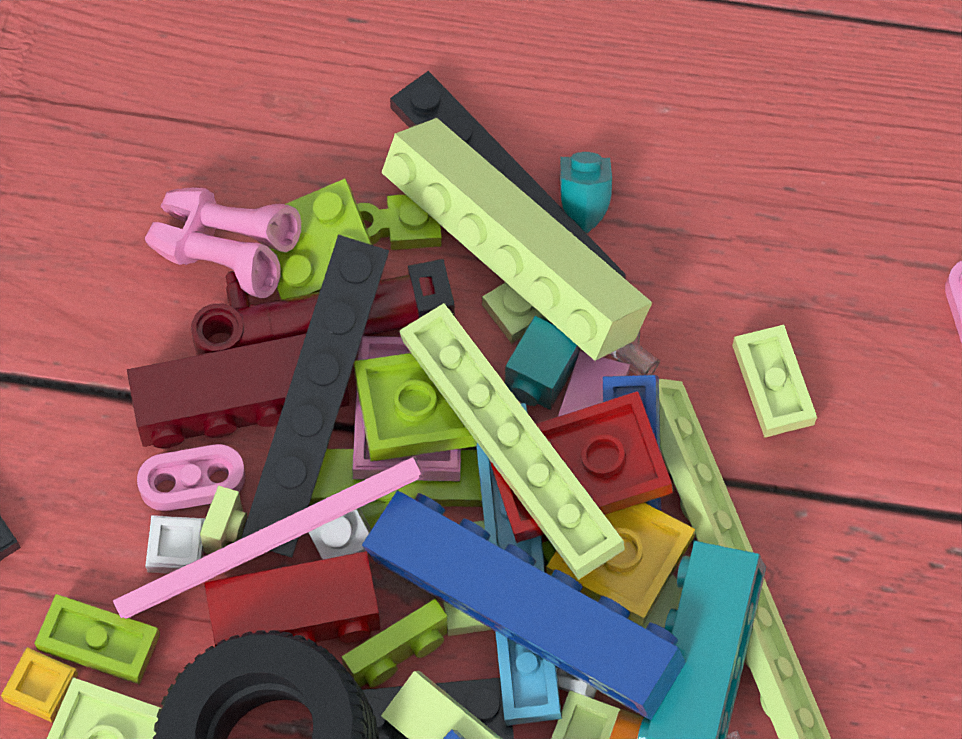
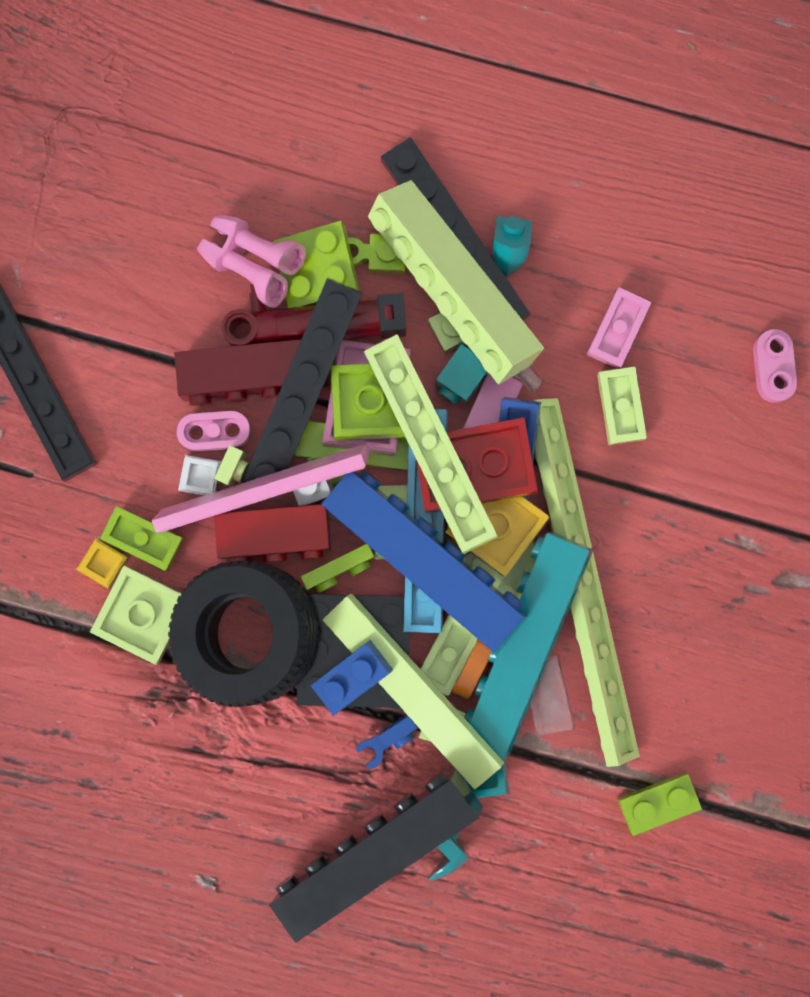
camera: 10 degrees right, 20 degrees up
(752, 280) = (618, 328): none -> bright pink plate

